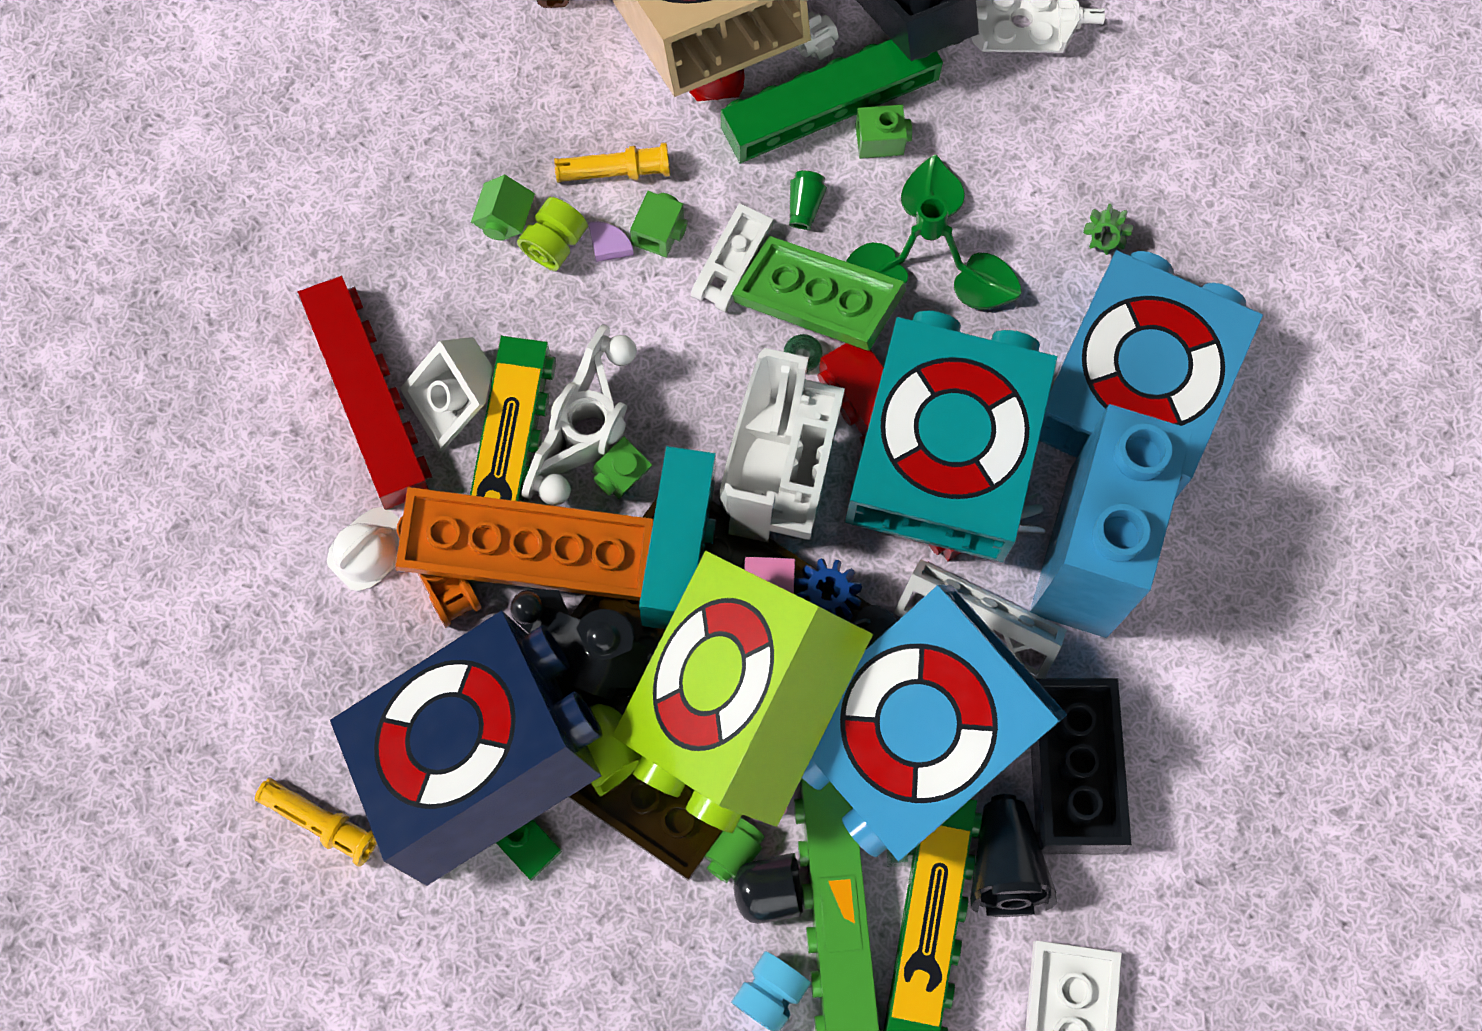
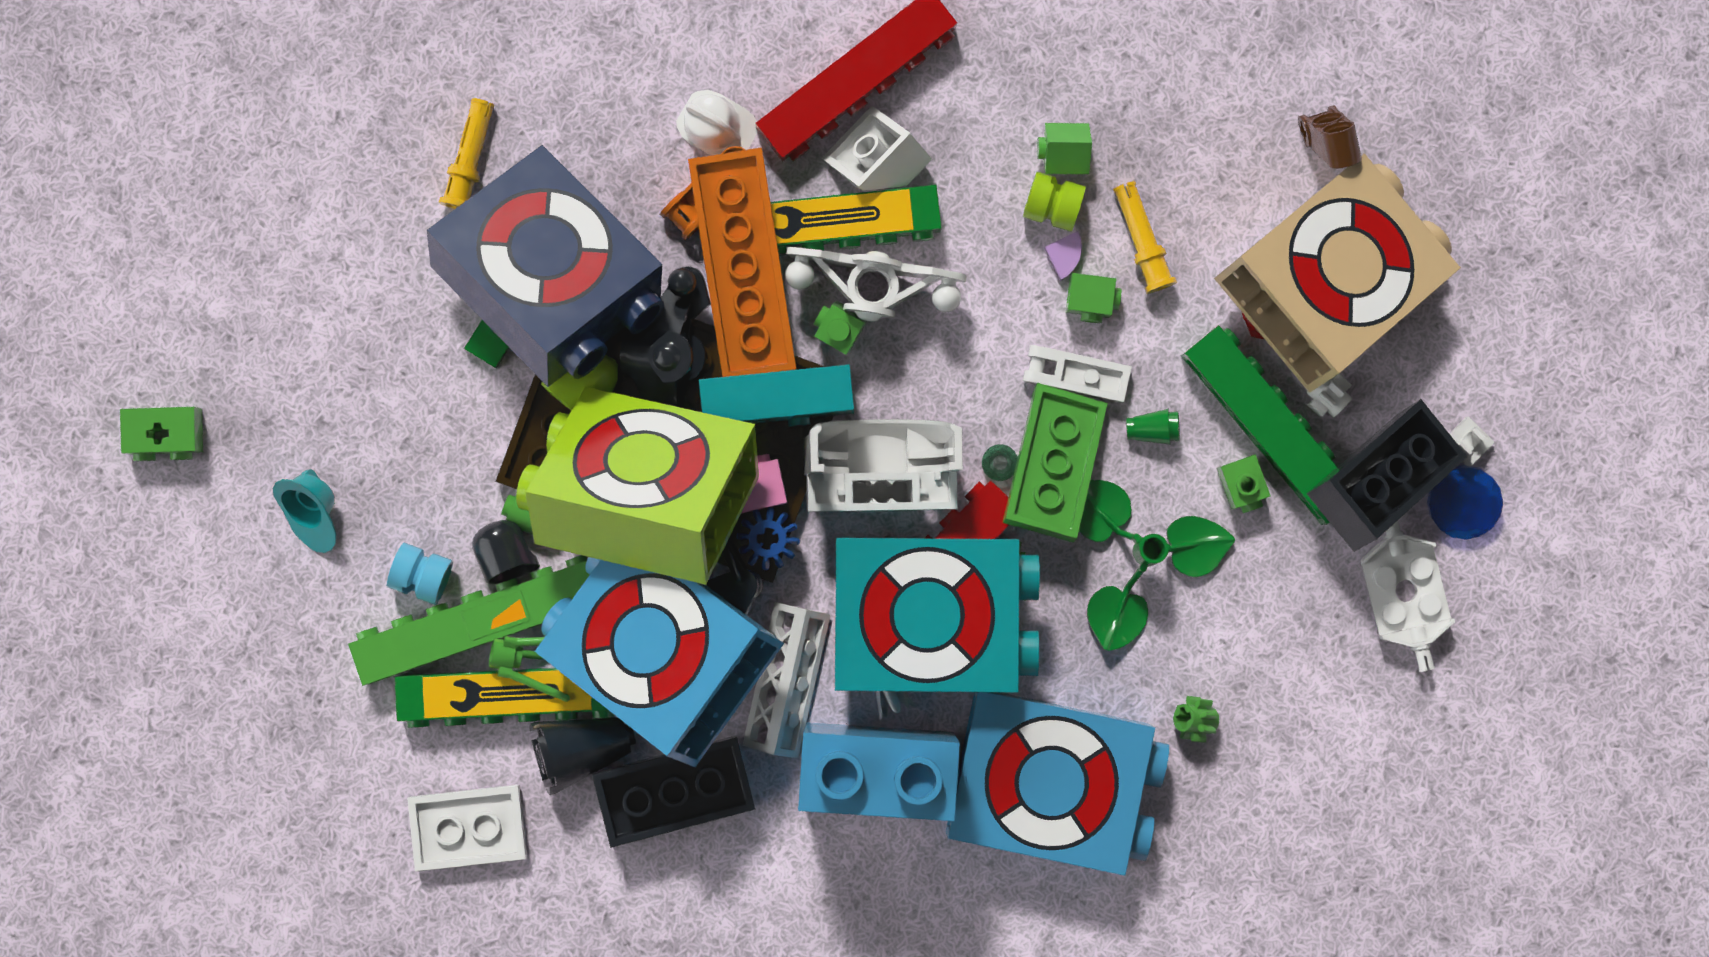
camera: 80 degrees right, 15 degrees up
(888, 906) = (509, 653): none -> bright green plant

